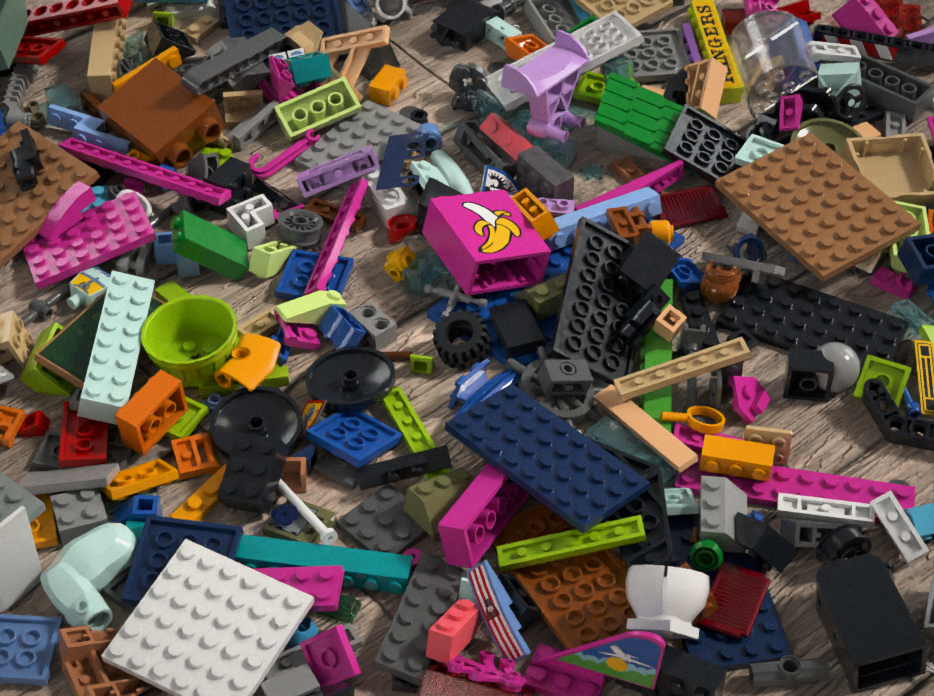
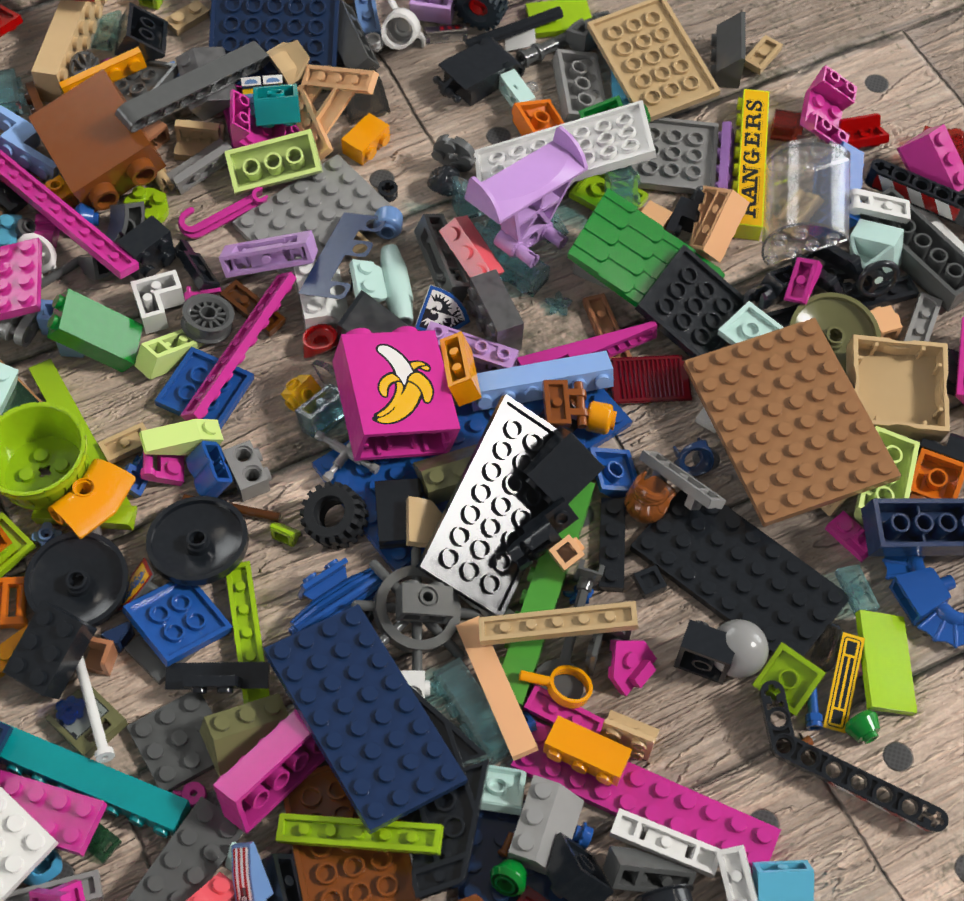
camera: 10 degrees right, 15 degrees up
(539, 326) = (421, 521): none -> tan slope

